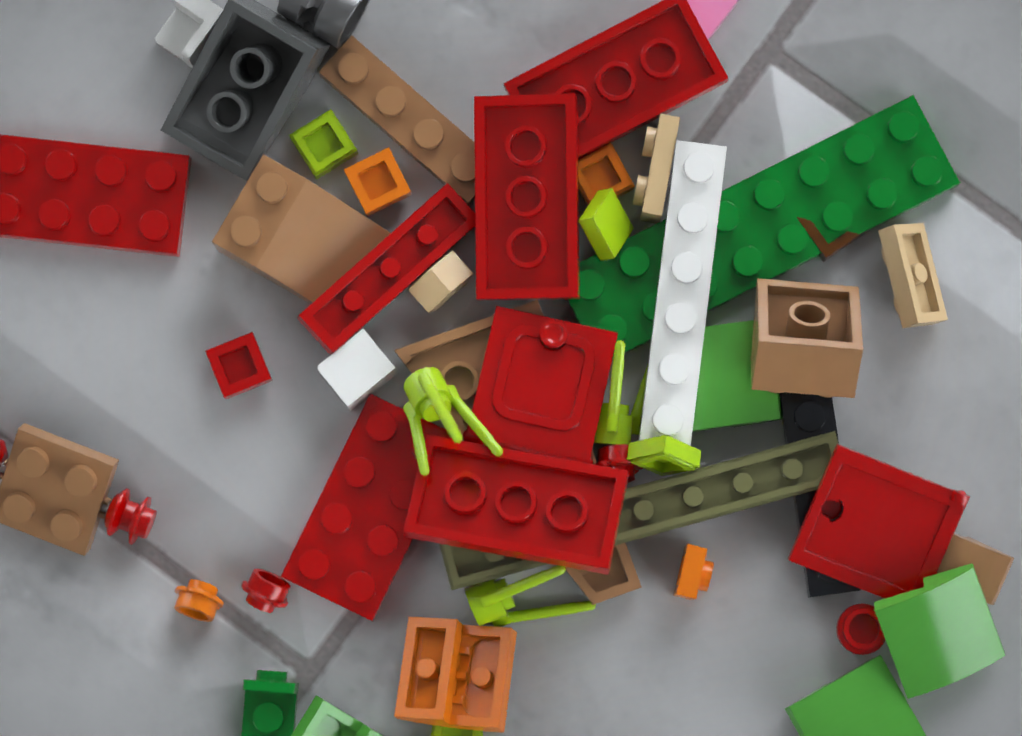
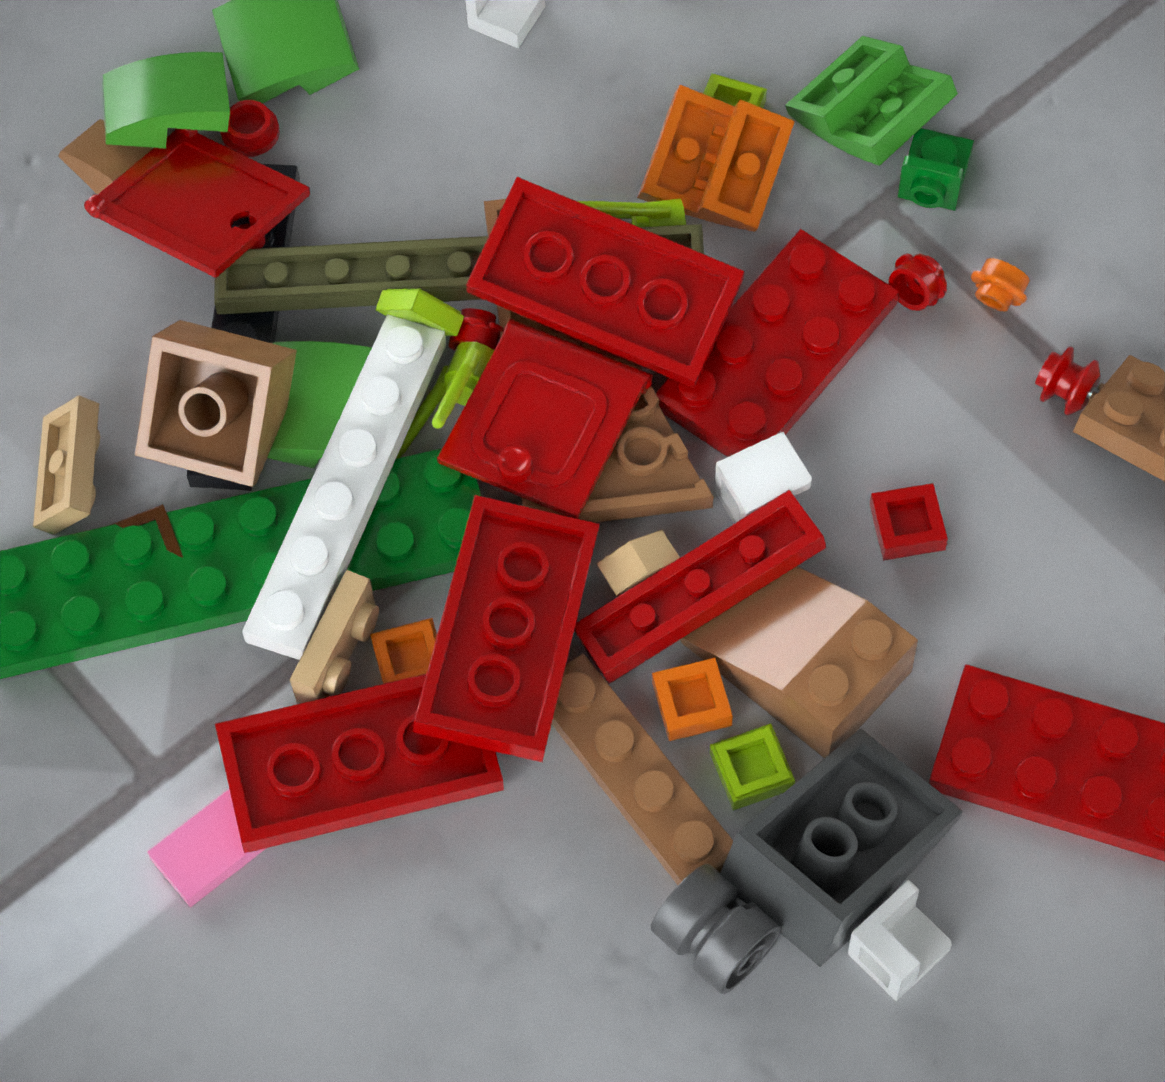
camera: 165 degrees left, 20 degrees down
(433, 401) = (680, 416): lime plant -> none
(606, 224) = (418, 586): lime tile -> none
(693, 572) = (423, 205): orange plate -> none

